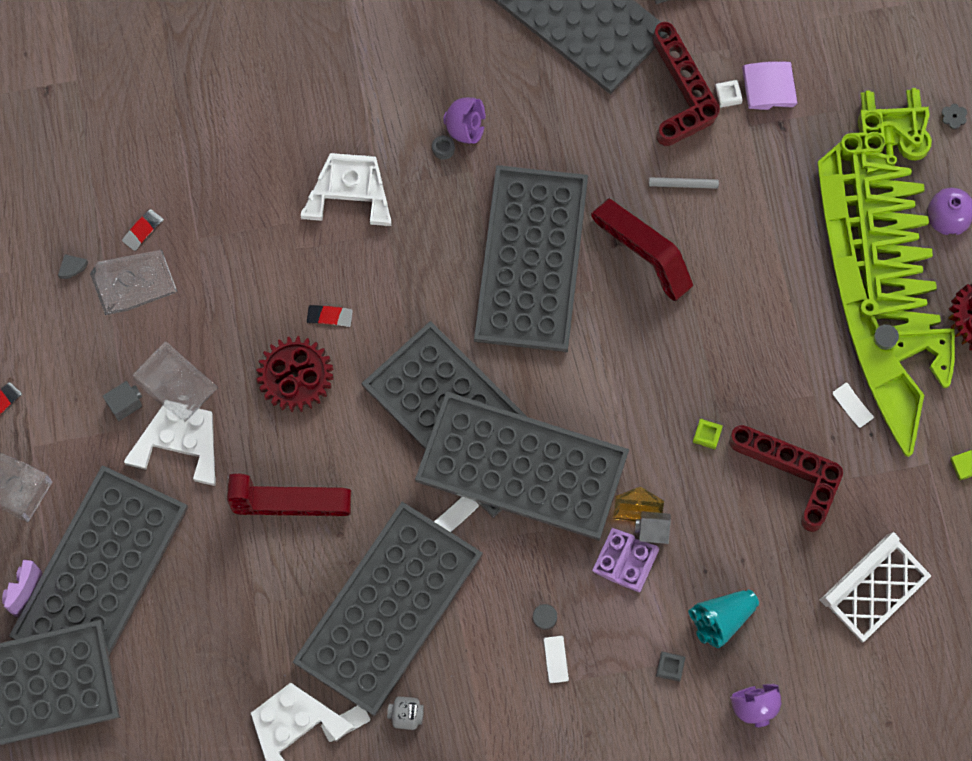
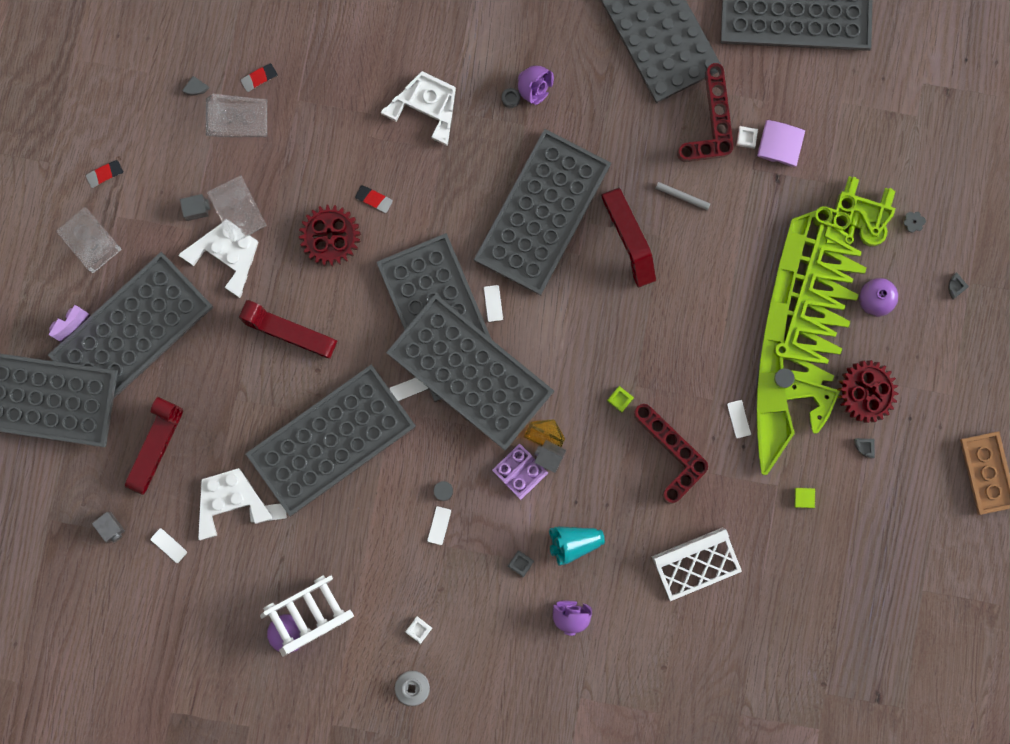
camera: 20 degrees right, 10 degrees up
(181, 648) = (155, 445): none -> dark red beam
(406, 713) = (313, 523): light grey head -> none
(515, 381) = (493, 303): none -> white sticker

